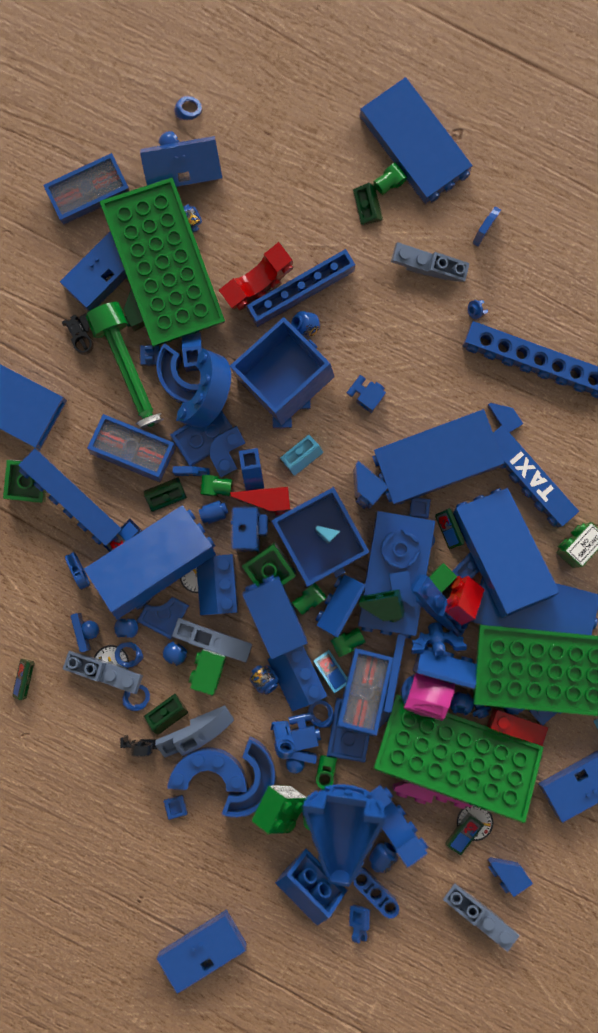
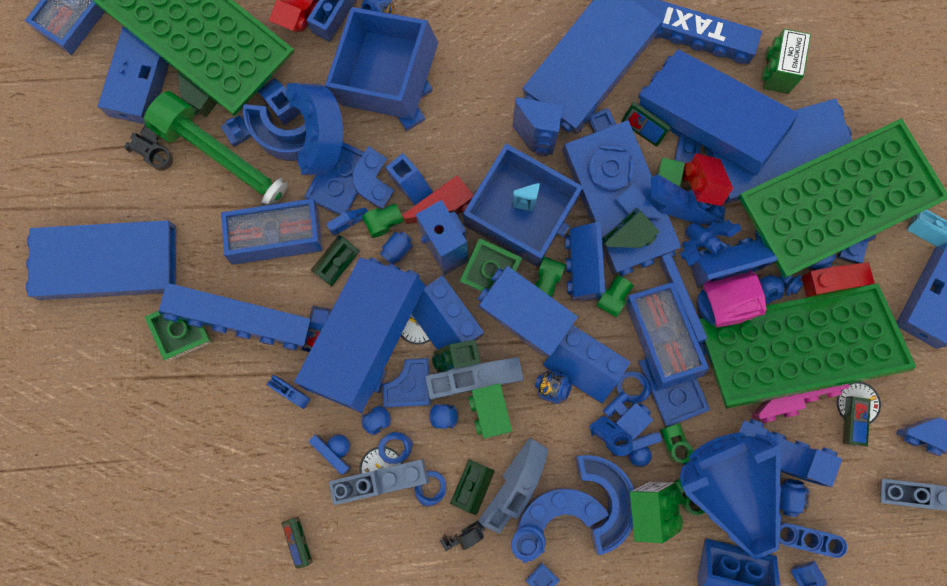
camera: 30 degrees left, 5 degrees down
(189, 776) = (537, 531): none -> blue piece
(207, 618) = (456, 356): none -> dark green bracket
(301, 455) = (451, 139): medium azure slope -> none
(331, 671) = (616, 337): slope -> none
(369, 396) = (484, 43): blue brick -> none

